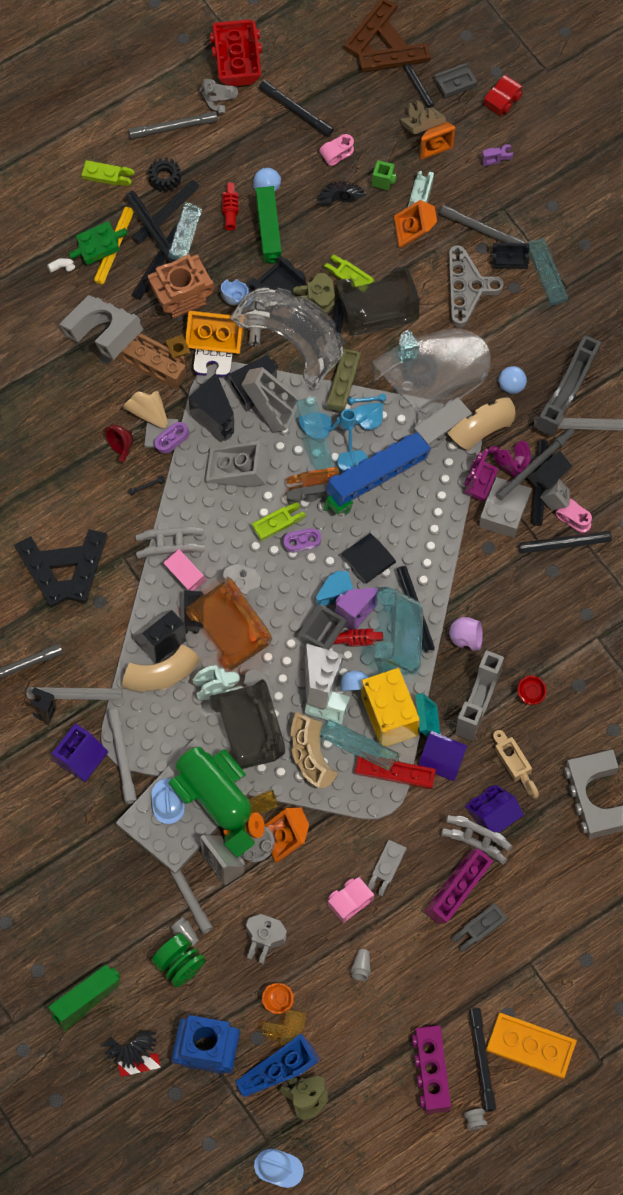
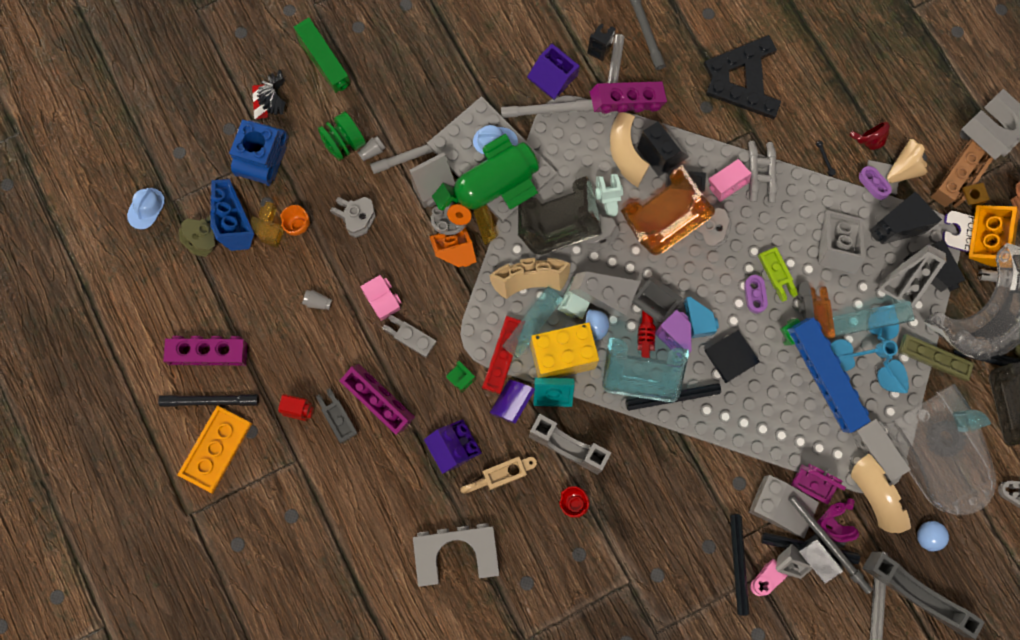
camera: 95 degrees right, 10 degrees up
(104, 673) = (628, 97): none -> magenta brick
(382, 397) = (914, 394): dark azure hinge -> none
(423, 811) = (460, 377): none -> green panel
(466, 632) = (643, 440): lavender helmet -> none
(467, 837) = (432, 416): light grey piece -> none
(475, 1119) = (151, 385): light grey wheel -> none
(480, 963) = (295, 407): none -> red brick

